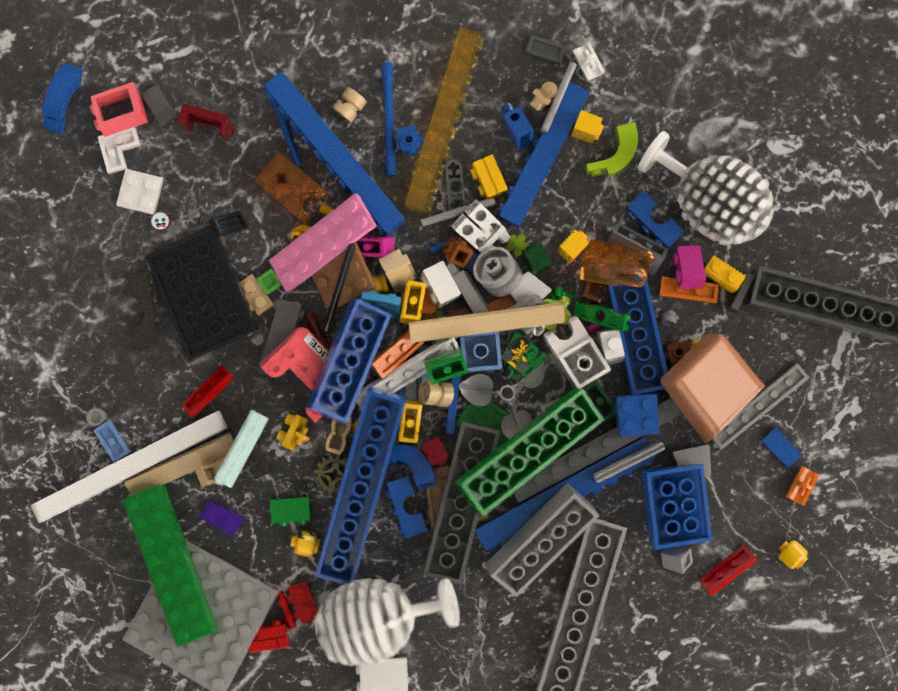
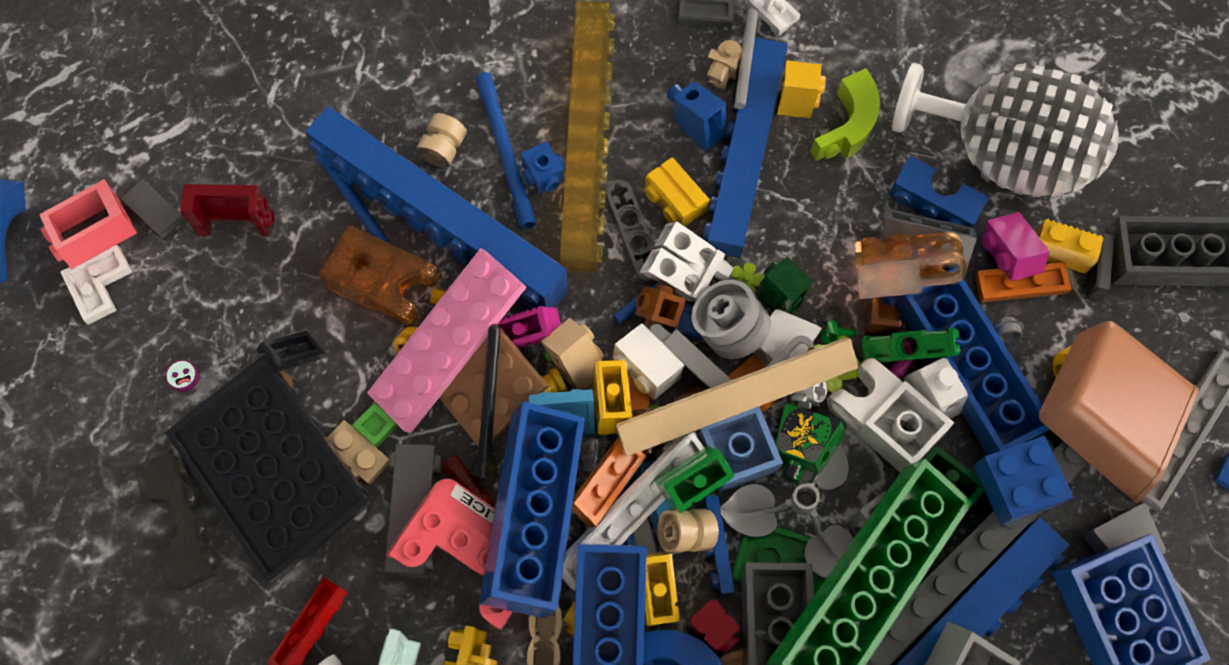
camera: 15 degrees left, 15 degrees down
(140, 191) = (141, 339): white plate -> none
(453, 213) = (631, 257): light grey bar -> none
(573, 245) = (832, 256): yellow brick -> none
(628, 461) = (1031, 562): light grey axle -> none
(675, 351) = (1041, 372): reddish brown brick -> none

